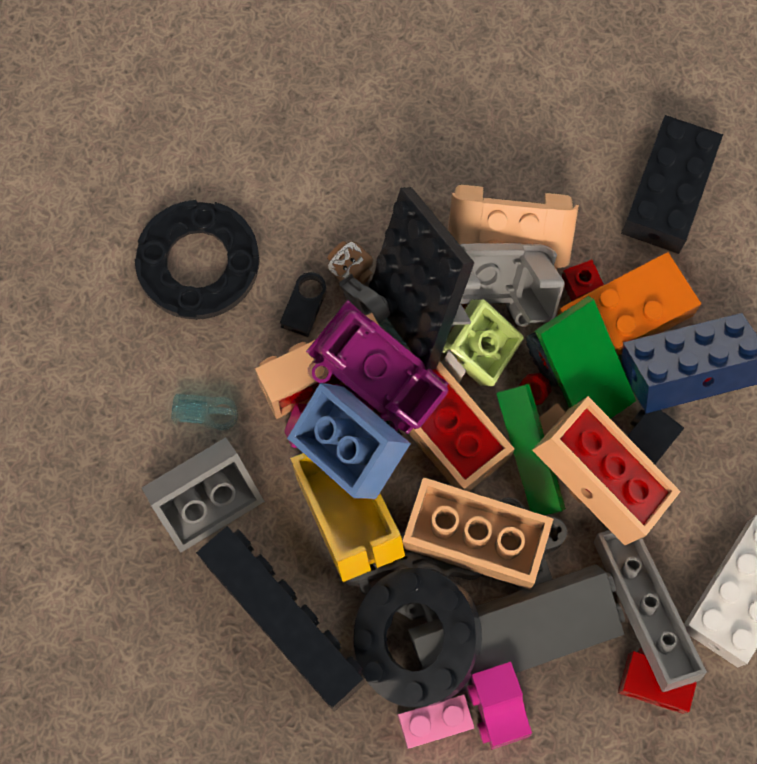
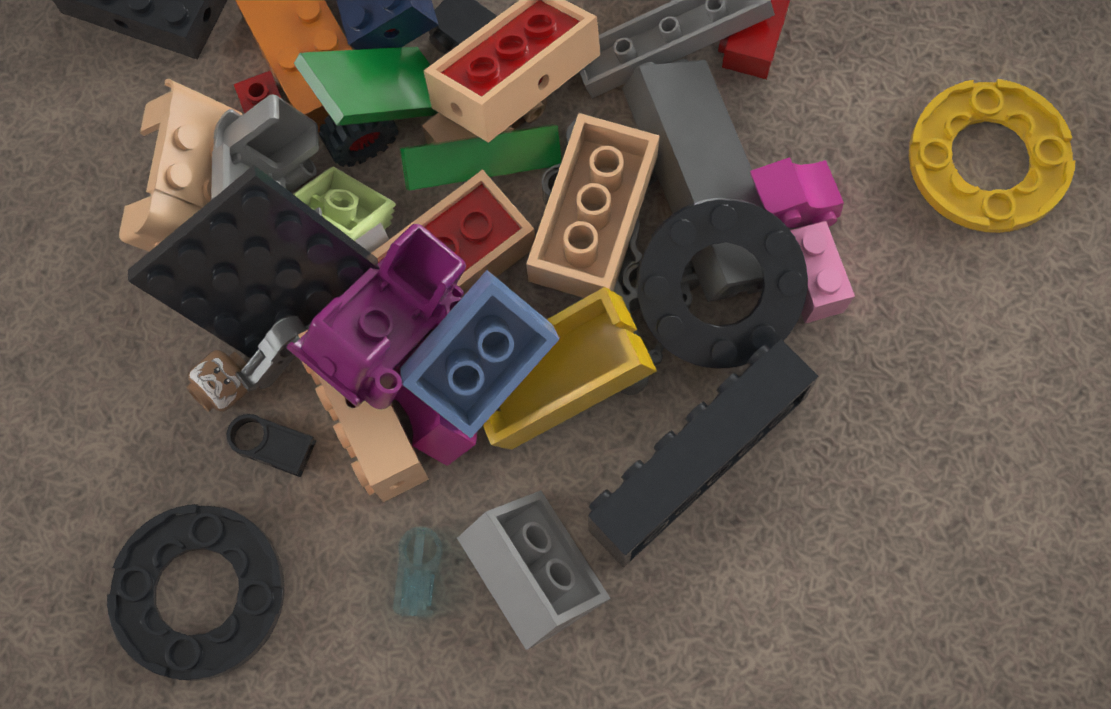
camera: 85 degrees left, 0 degrees up
(539, 386) = (391, 156): red tile -> none

